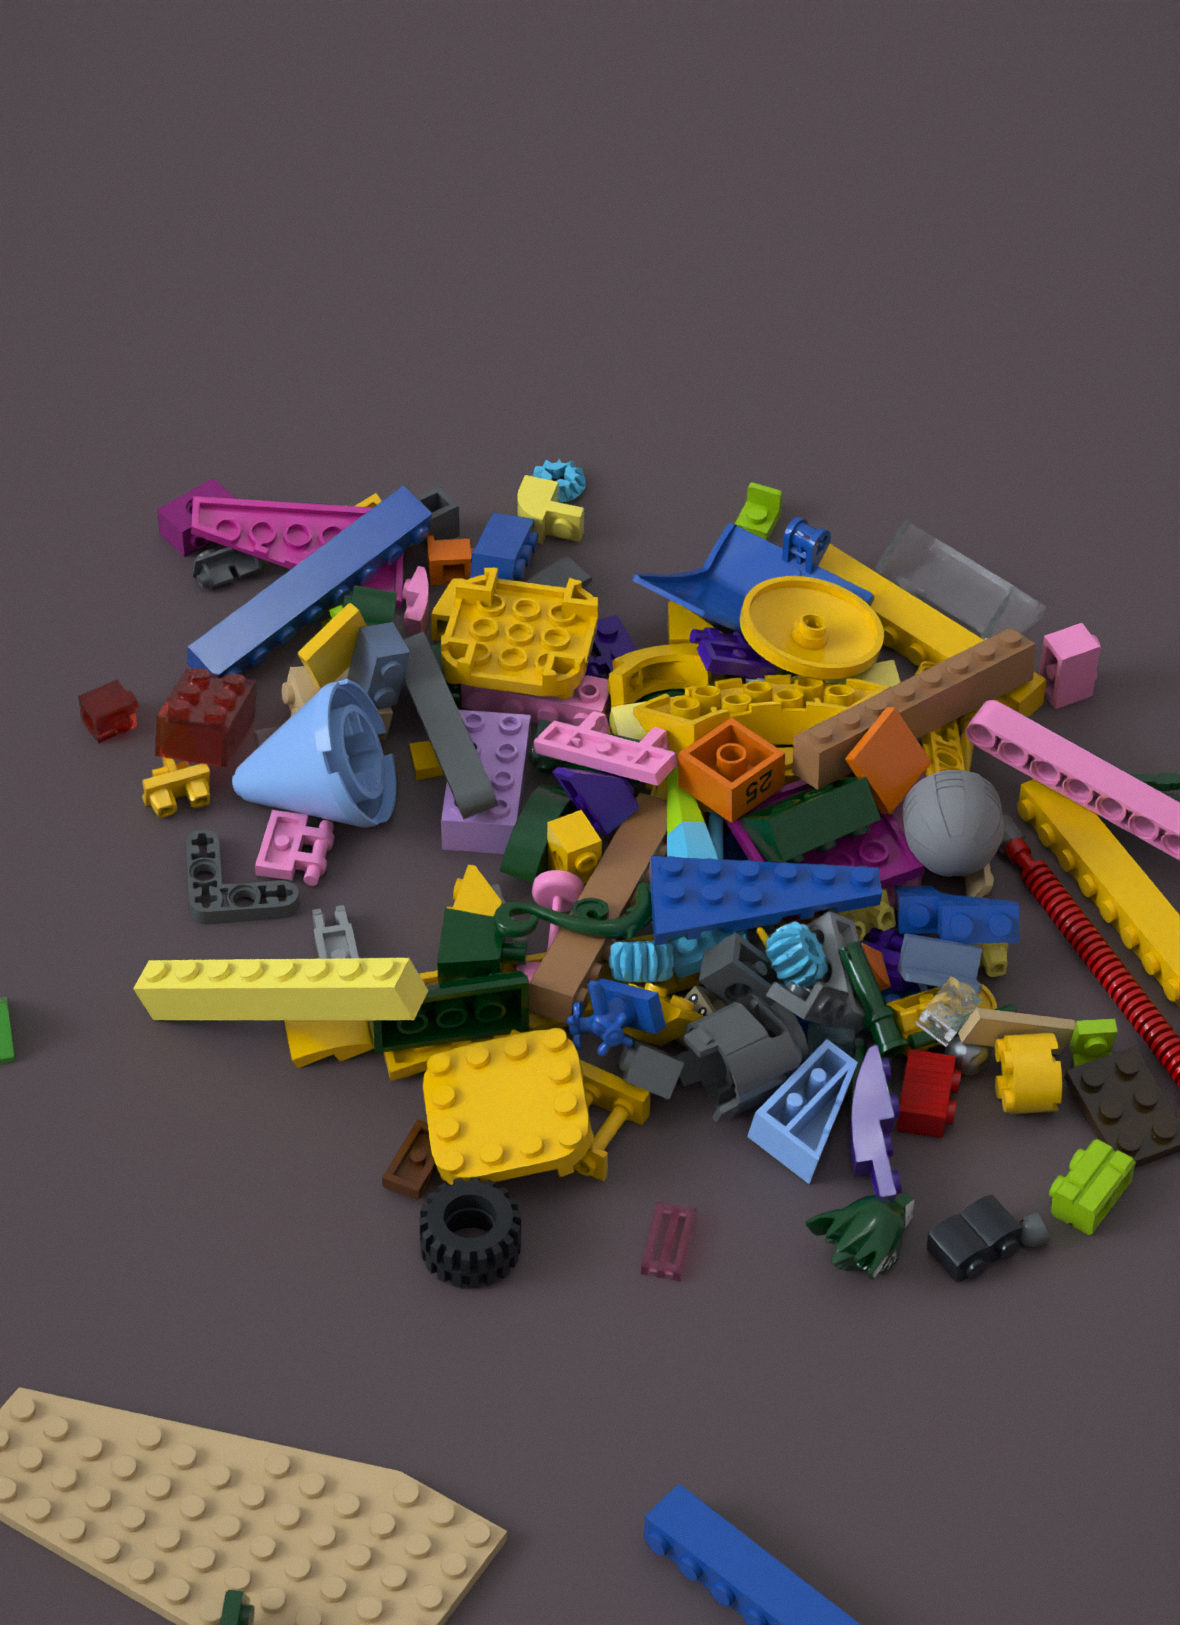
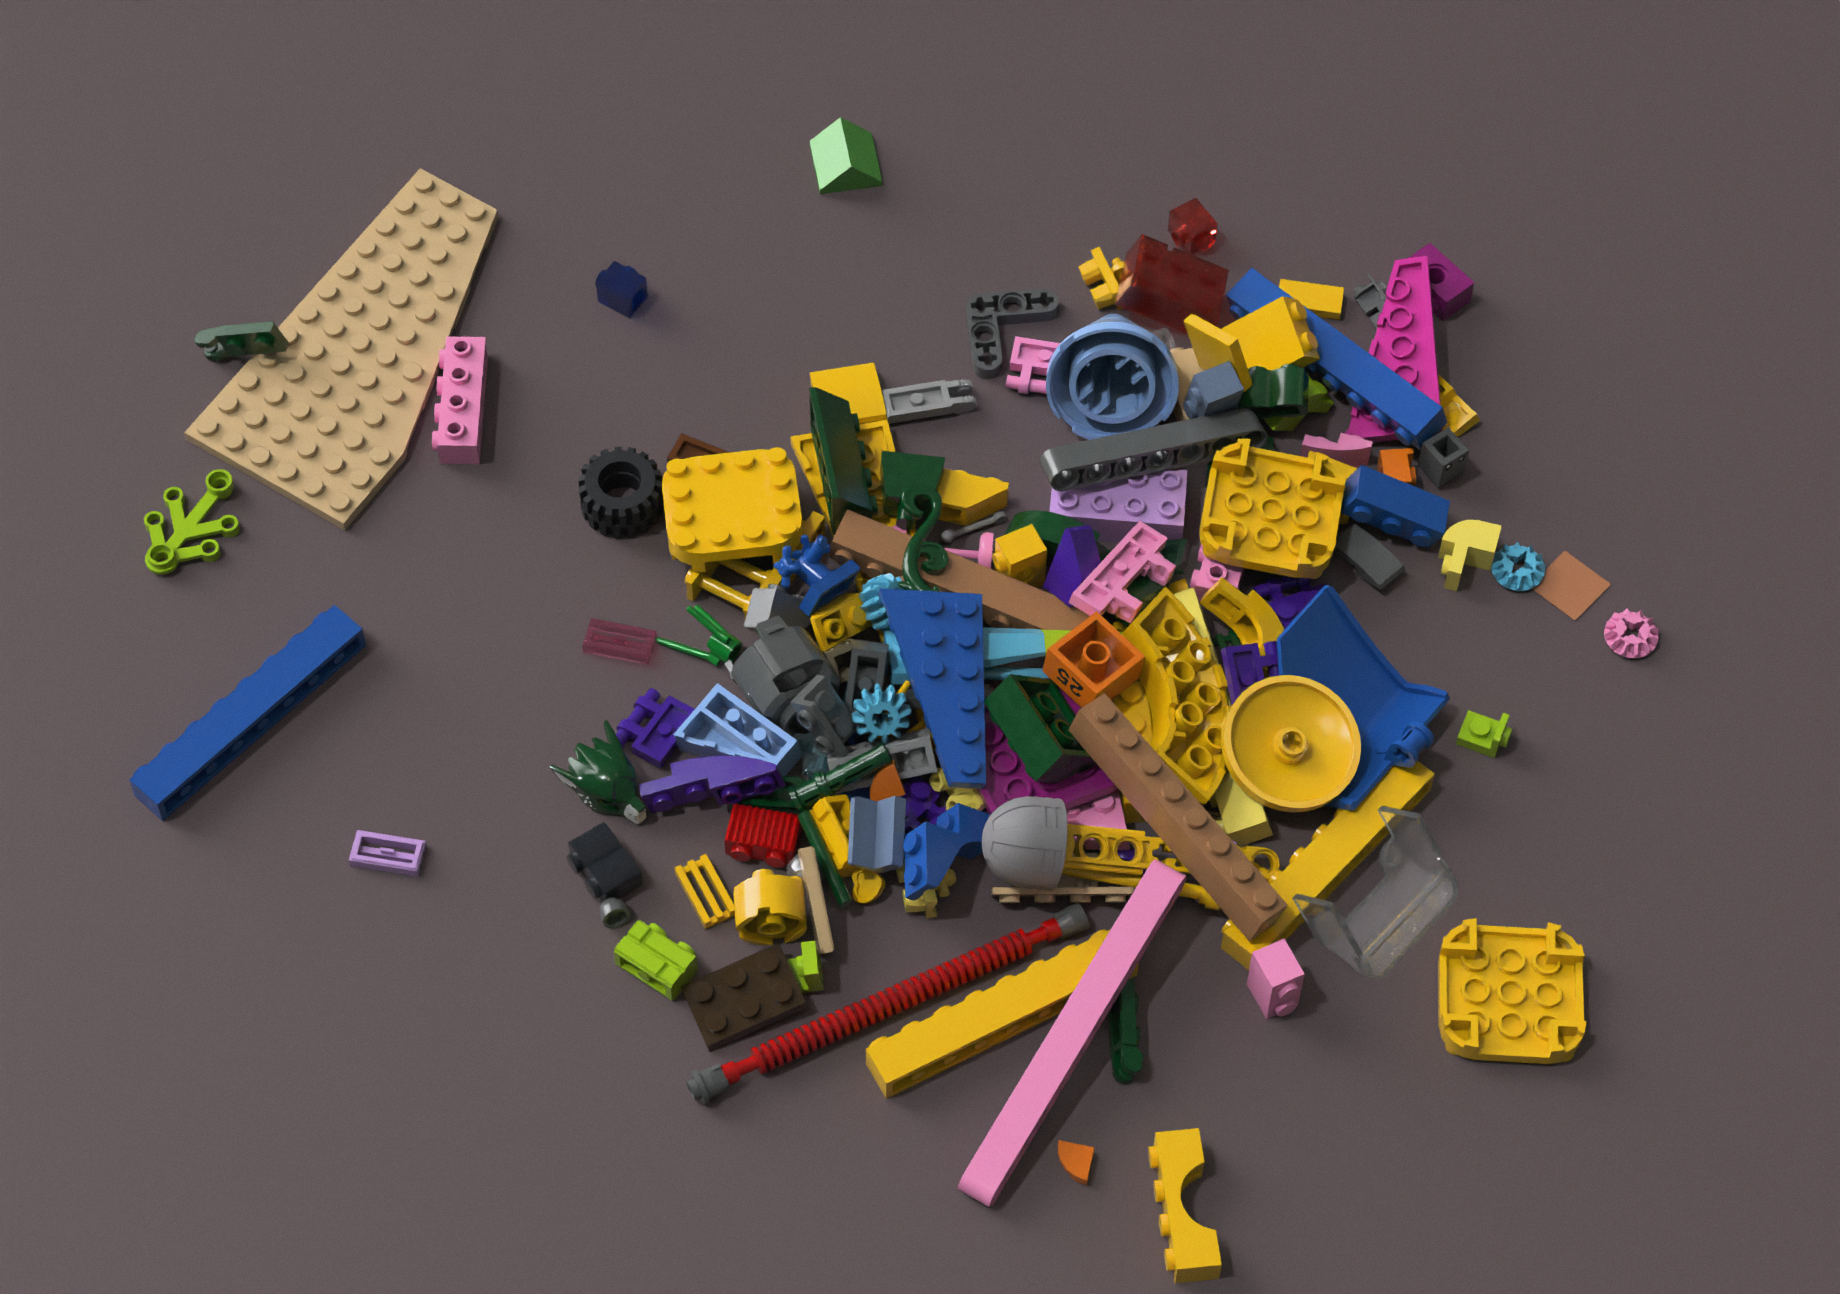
camera: 90 degrees right, 10 degrees up
(159, 1246) = (621, 289): none -> clear blue brick
(207, 613) = (1319, 298): none -> yellow tile
(282, 989) = (835, 332): light yellow brick -> none
(287, 622) = (1276, 335): none -> yellow brick
(323, 1408) = (462, 400): none -> bright pink brick
(577, 445) = (1571, 585): none -> nougat sticker
(634, 414) = (1630, 645): none -> bright pink gear
(674, 1137) = (721, 644): none -> green plant
(792, 1188) = (656, 740): none -> dark purple plate
(888, 759) = (1098, 783): orange tile -> none
(948, 1010) = (812, 824): clear brick -> none
(967, 1489) = (377, 858): none -> lavender tile
(991, 1145) = (694, 867): none -> yellow tile
(1052, 510) = (1511, 993): none -> yellow plate

